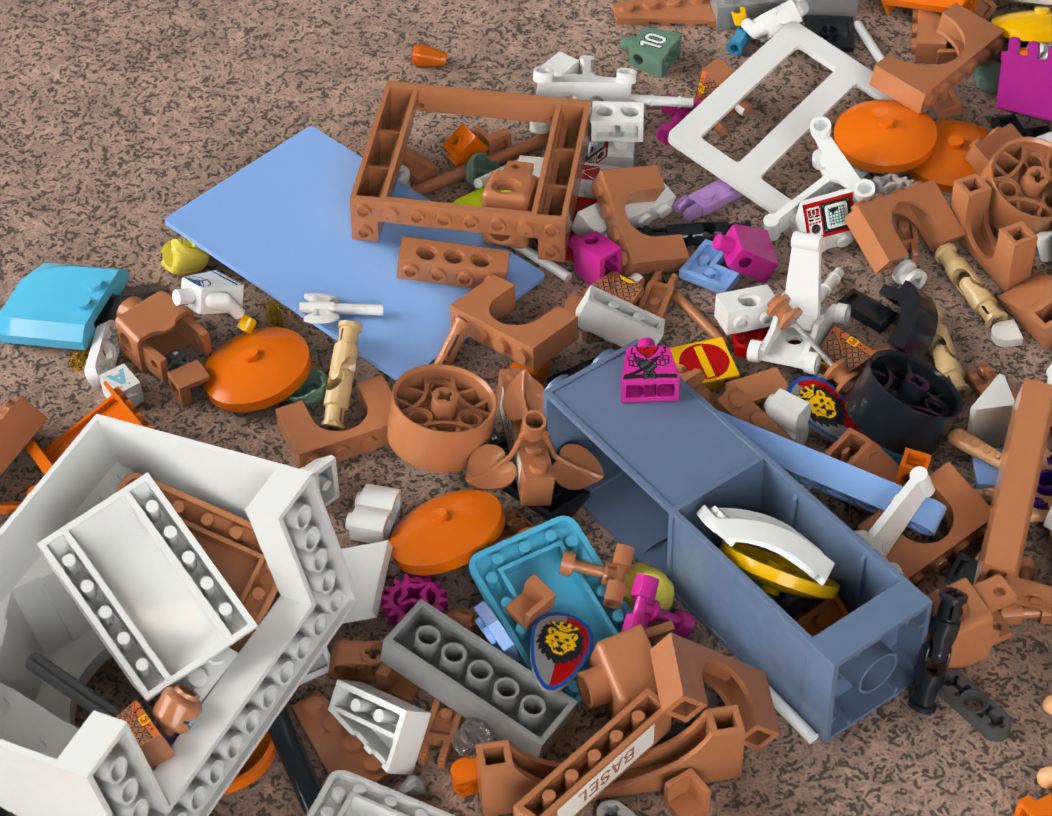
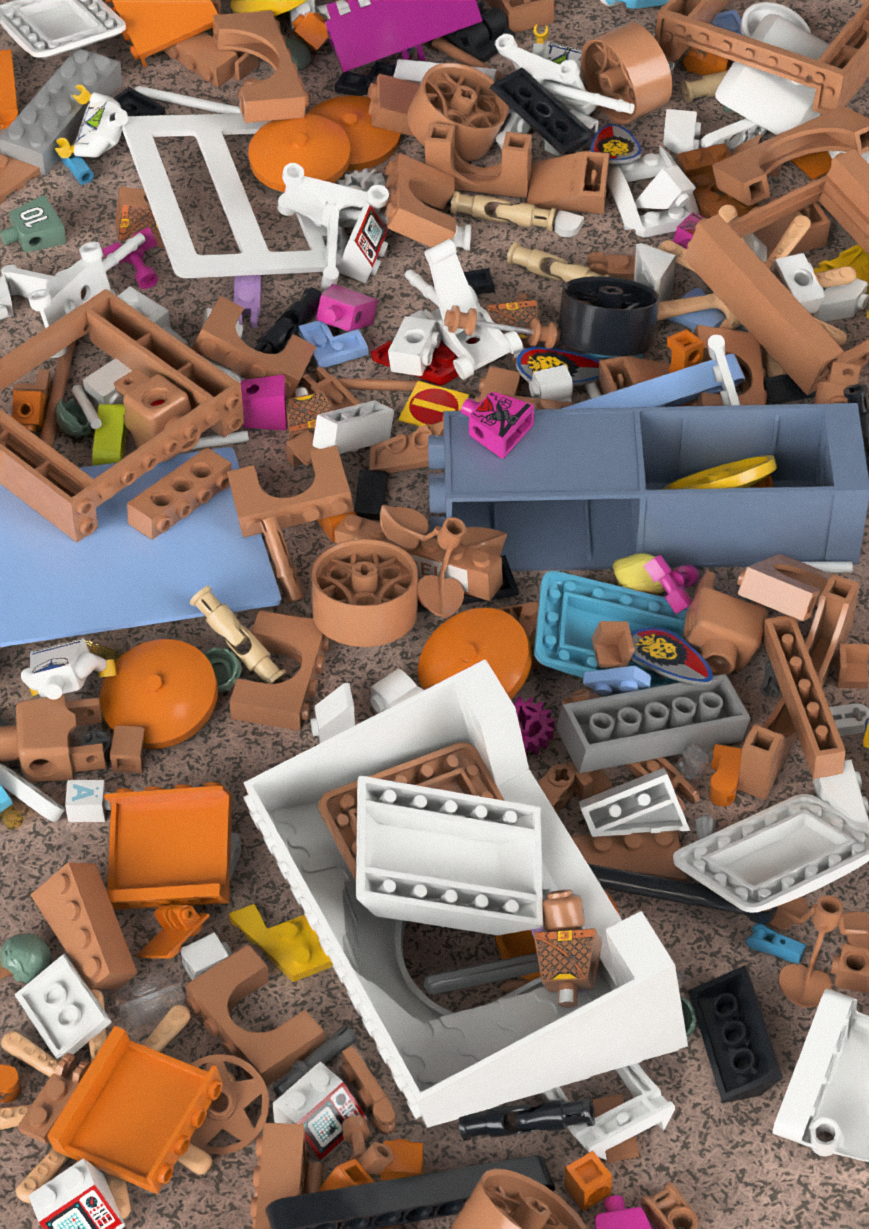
camera: 55 degrees left, 5 degrees up
(325, 308) = (158, 602): white piece -> none
(611, 575) = (622, 583): nougat bar -> none
(617, 121) = (135, 285): white brick -> none
(768, 532) = (708, 460): white wedge -> none
(917, 319) = (529, 264): black arch -> none

